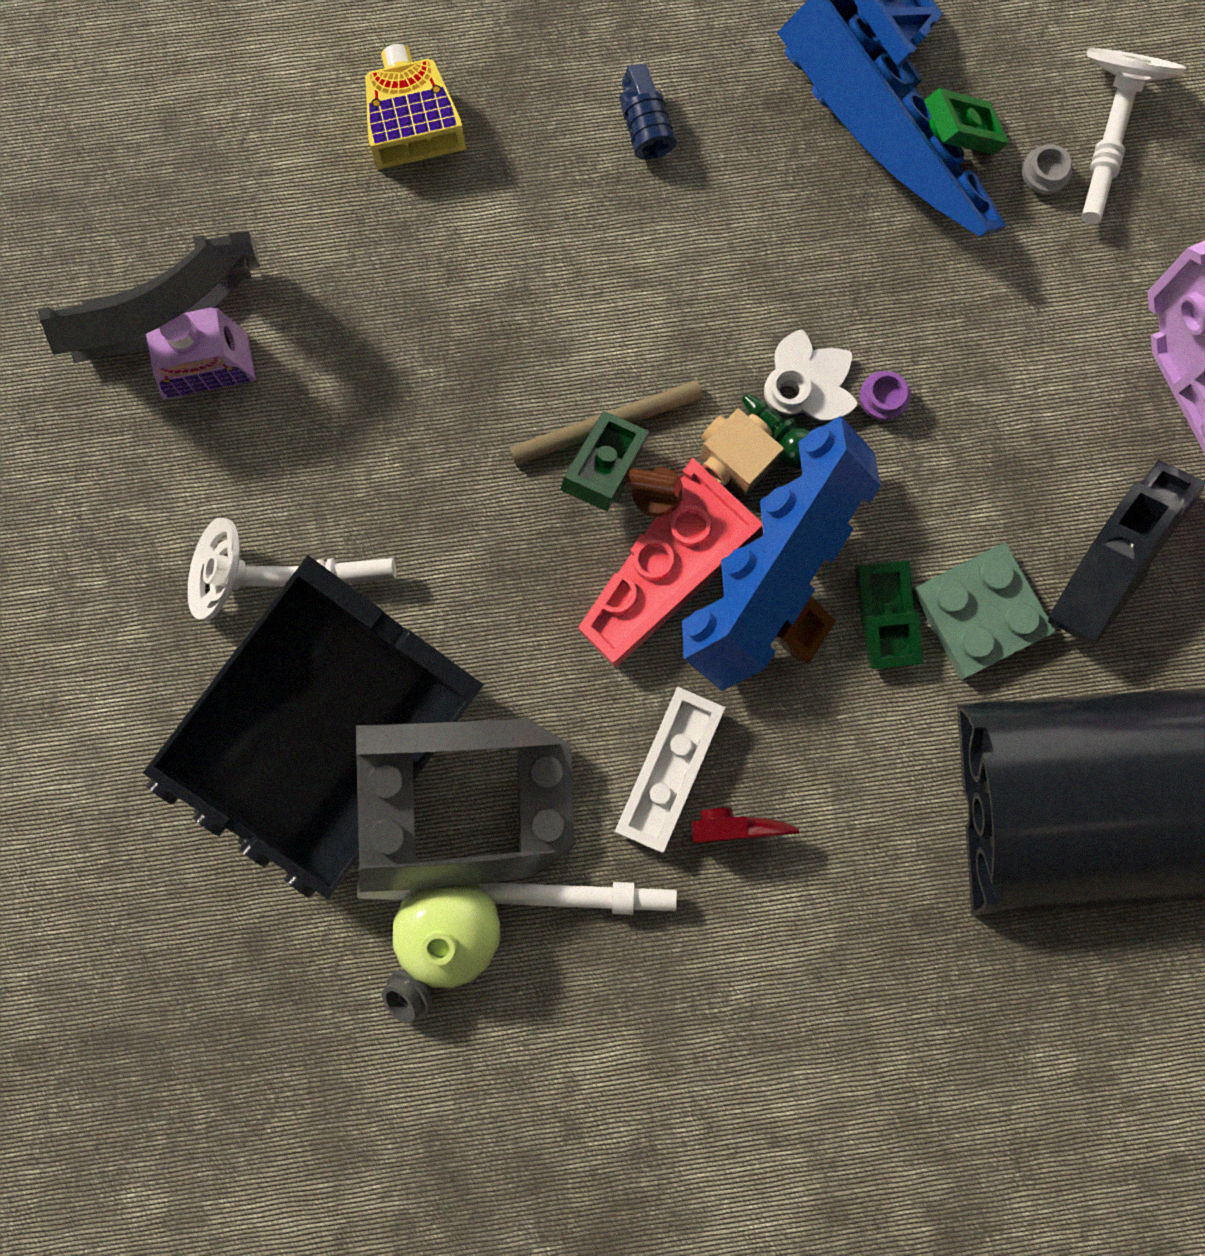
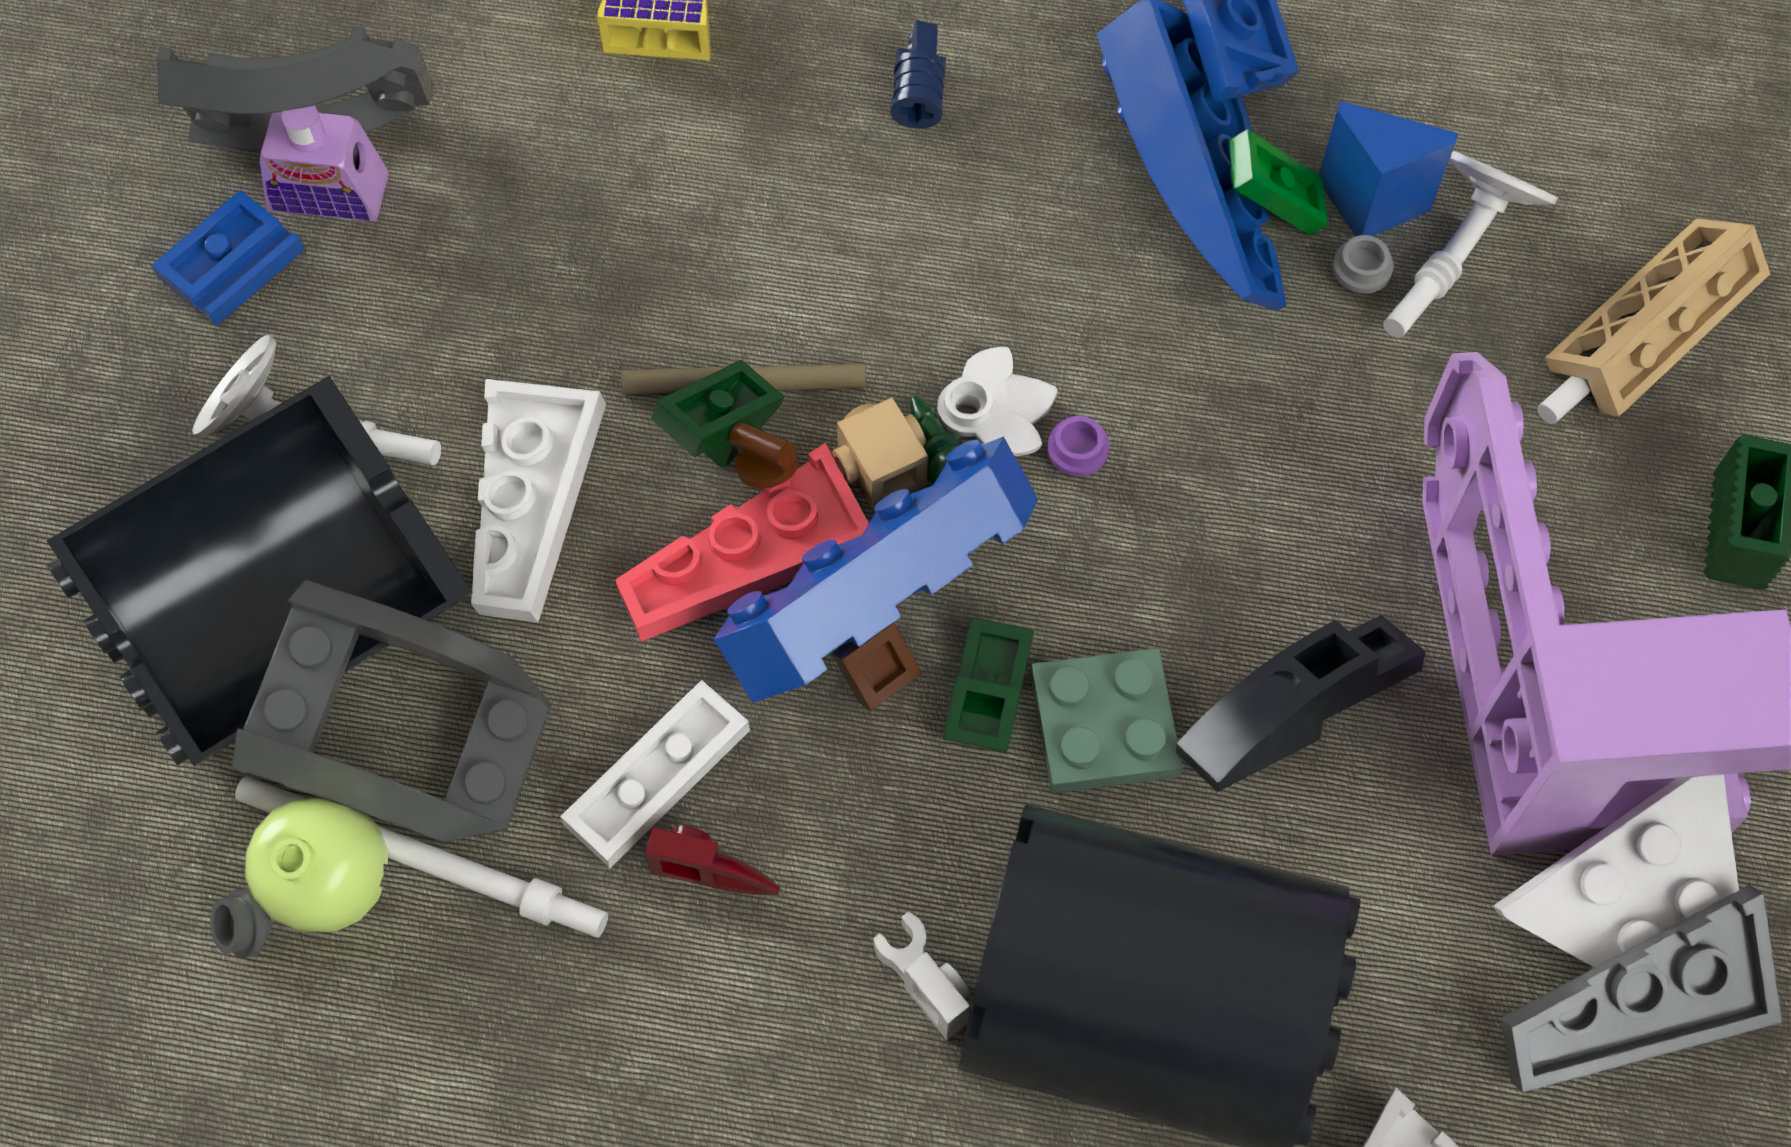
camera: 20 degrees right, 15 degrees down
(153, 454) = (228, 257): none -> blue plate
(475, 556) = (533, 472): none -> white wing
(940, 865) = (936, 990): none -> white plate
(1042, 83) = (1383, 167): none -> blue slope

